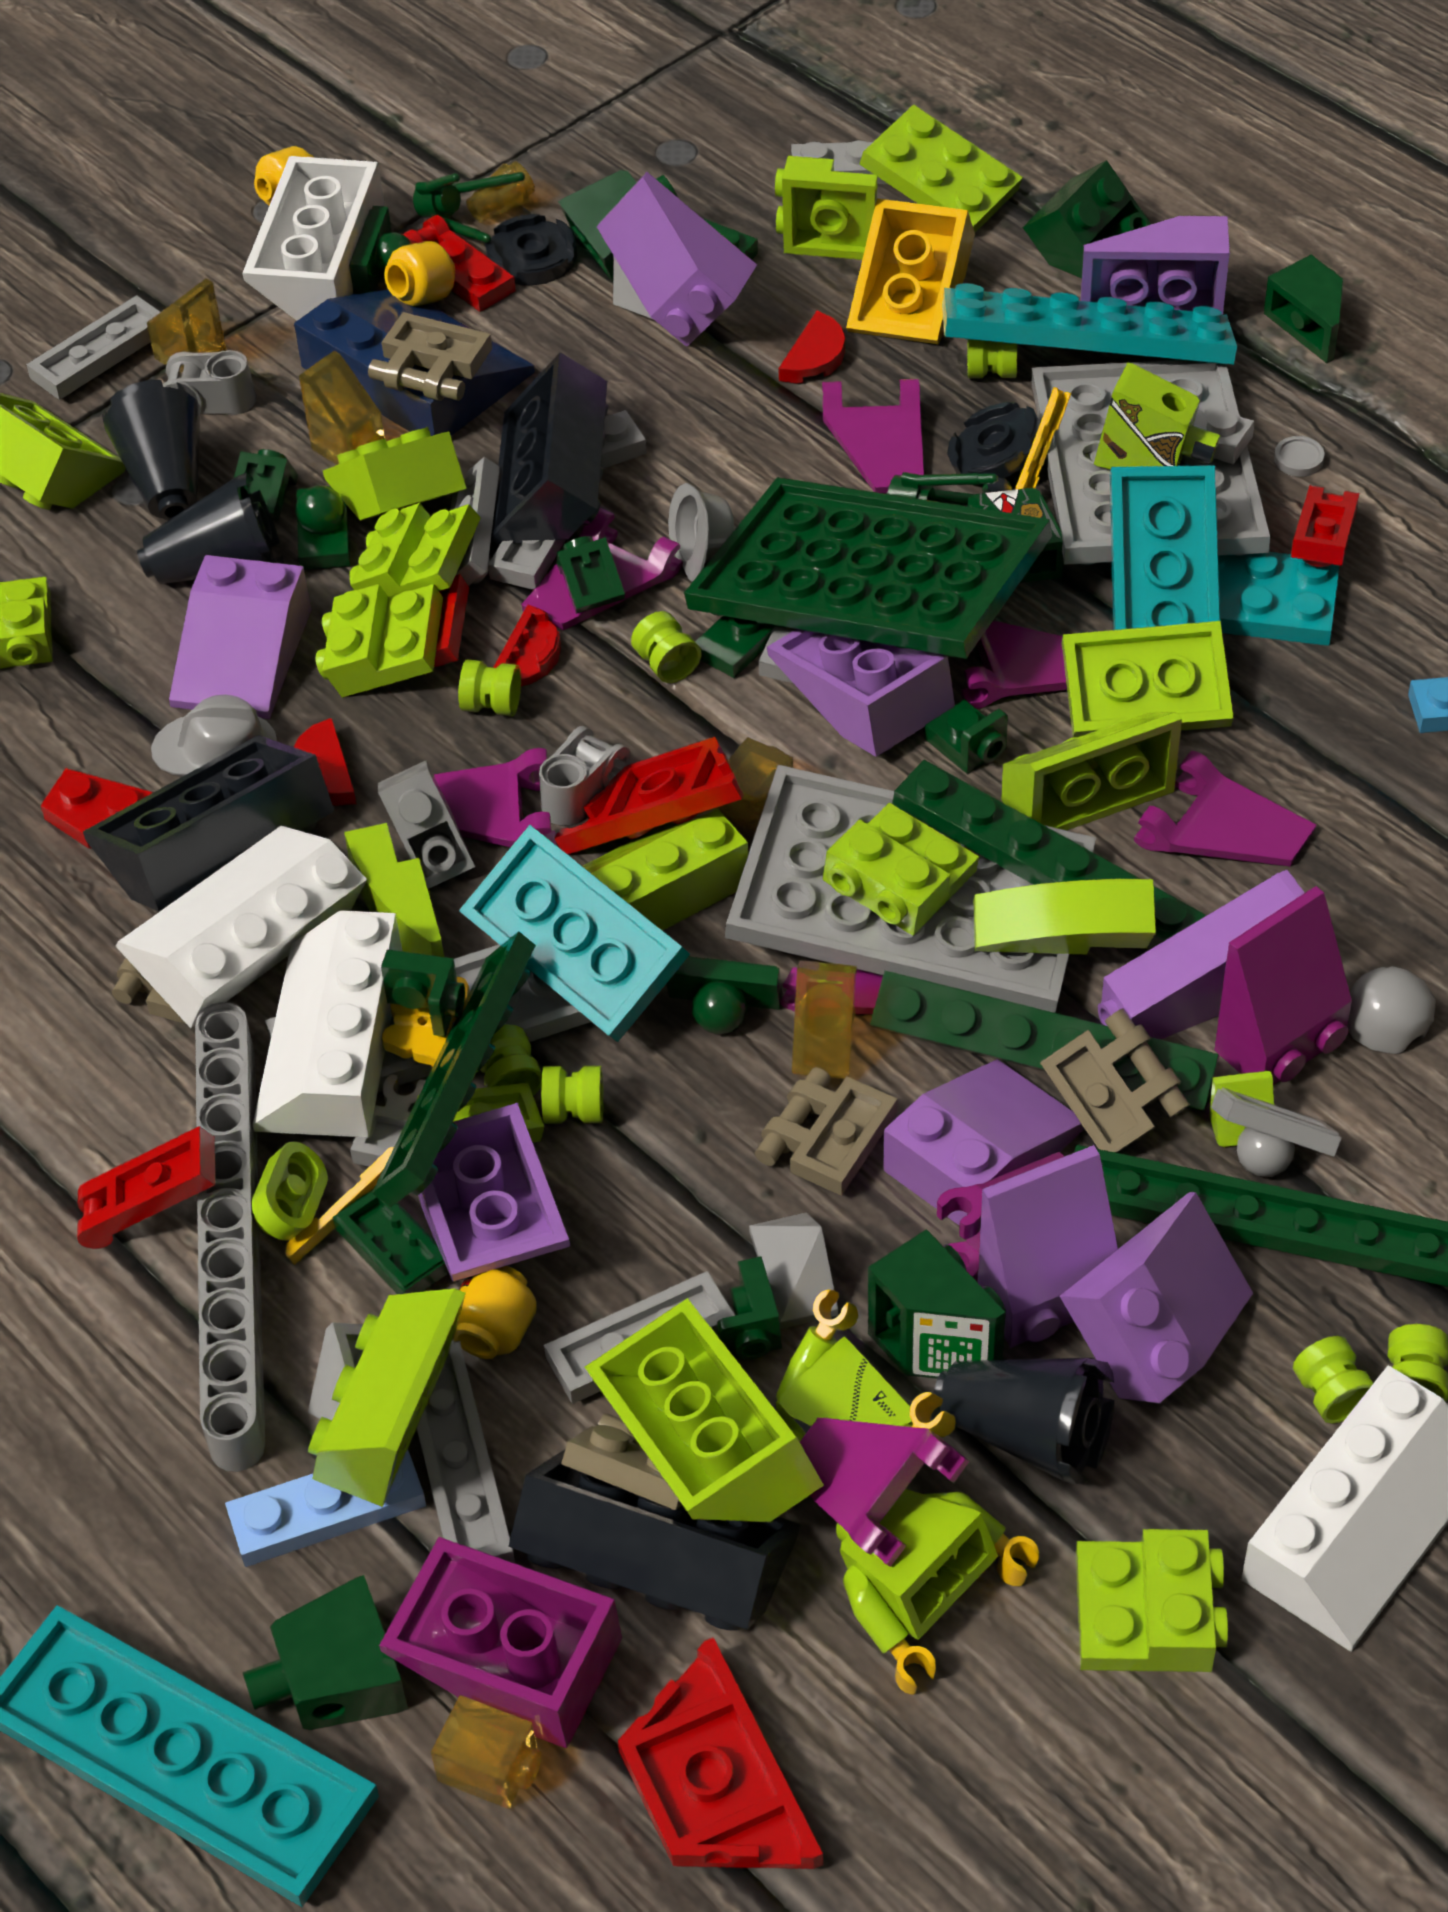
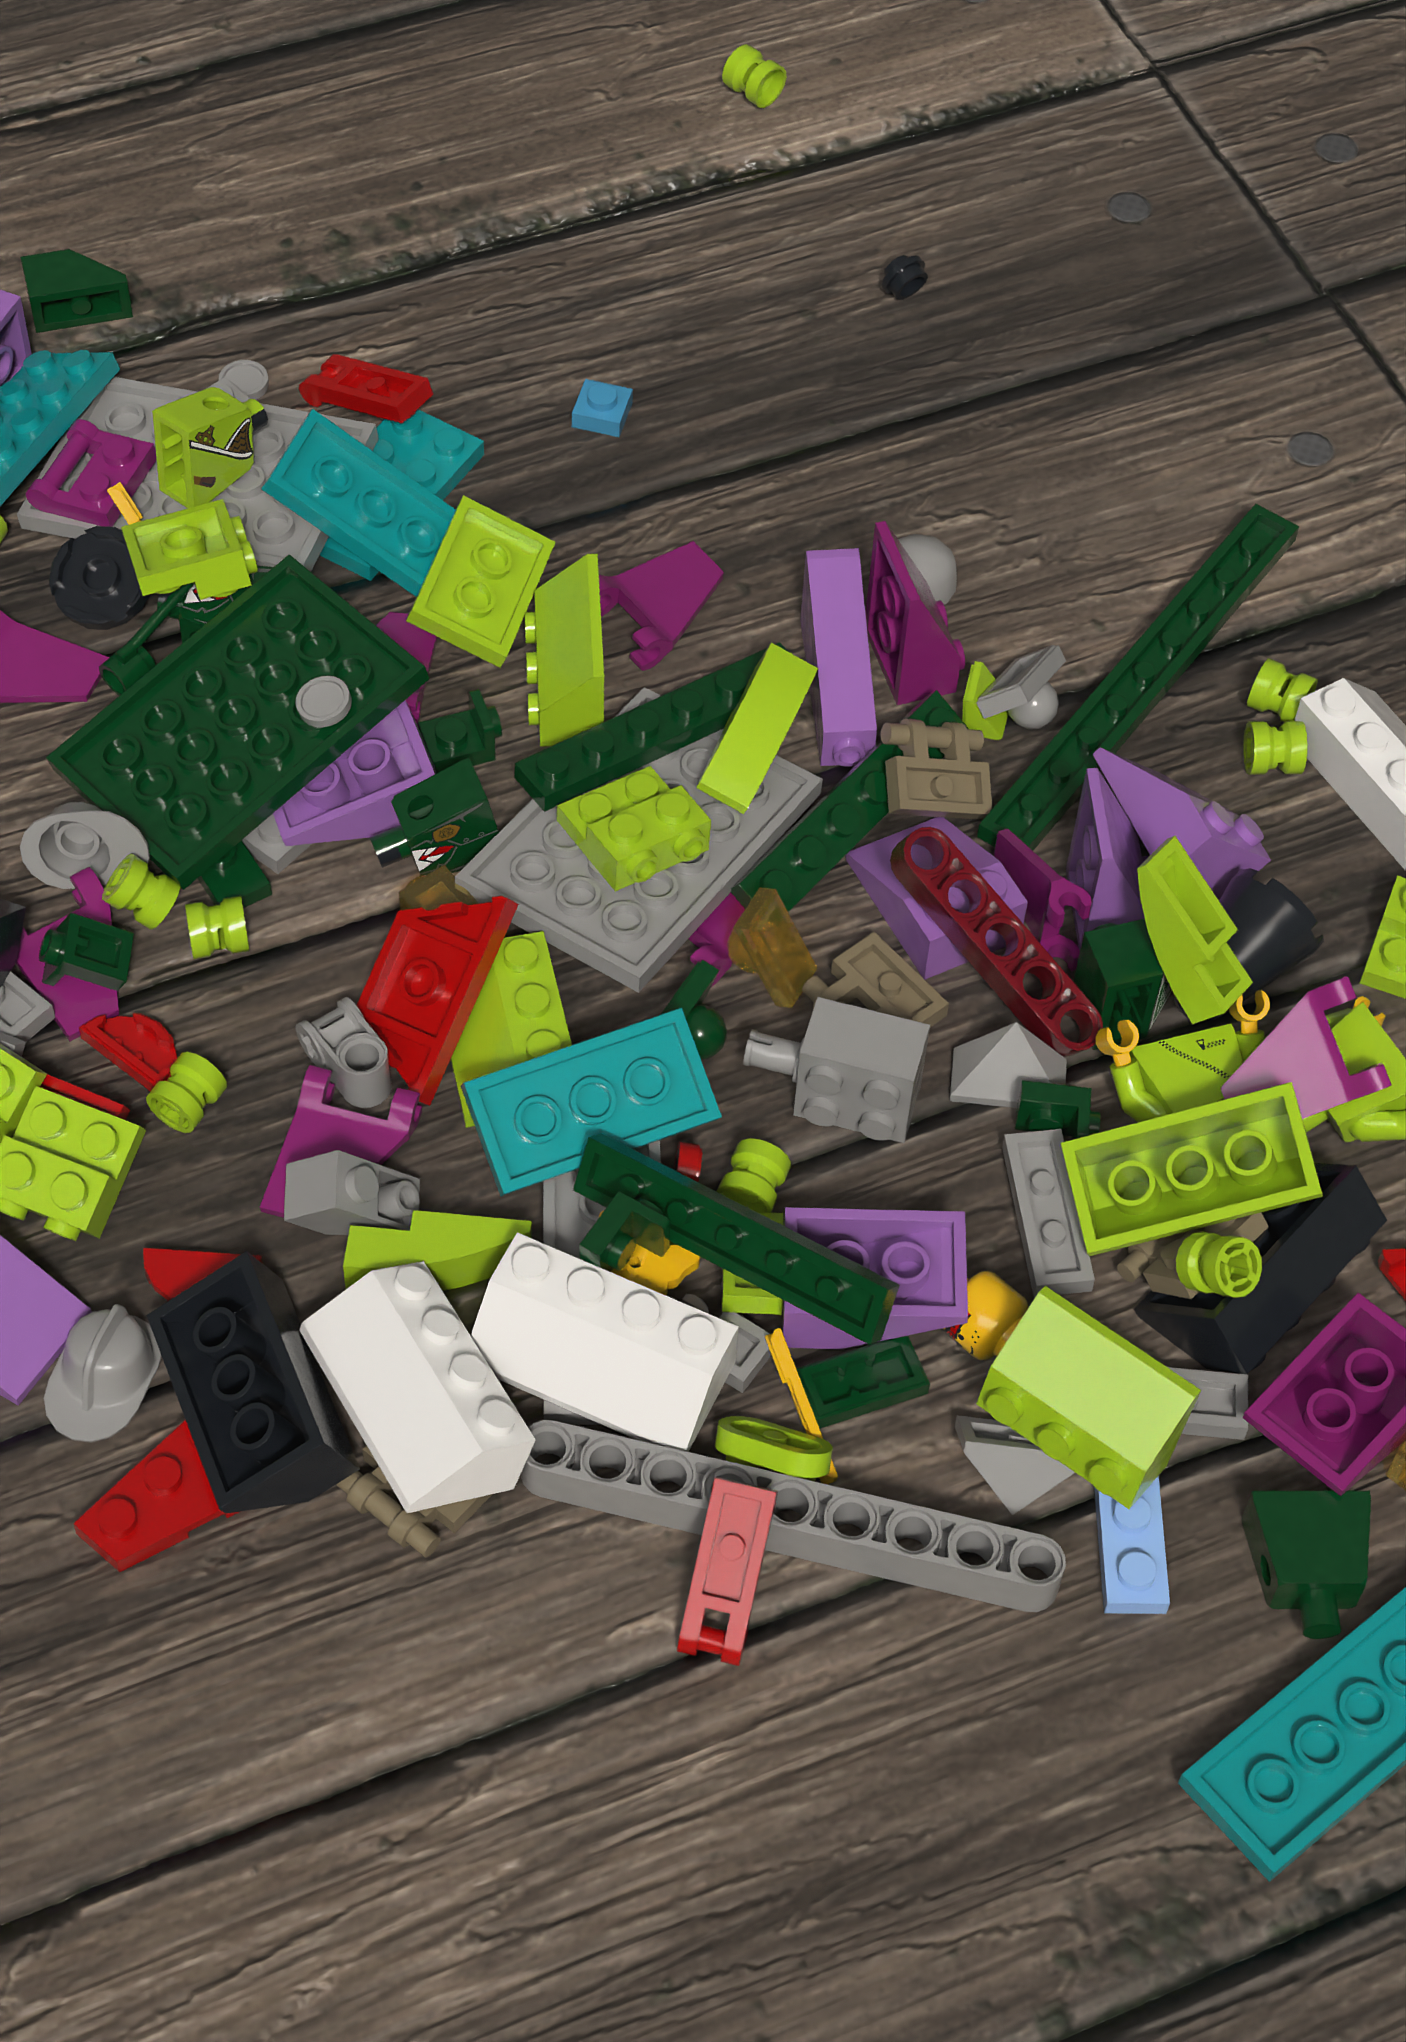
camera: 75 degrees left, 5 degrees up
(560, 1042) = (688, 1160): none -> red tile
(595, 1448) = (1219, 1264): none -> lime wheel
(670, 578) = (138, 890): none -> lime wheel
(708, 1121) = (850, 1068): none -> light grey brick
(845, 739) = (440, 822): none -> dark green torso
(894, 1146) = (969, 931): none -> dark red beam
(895, 597) = (323, 701): none -> light grey piece
(948, 1297) = (1190, 933): none -> lime slope
(1017, 461) = (191, 547): none -> lime plate
(1089, 396) = (114, 461): none -> magenta plate

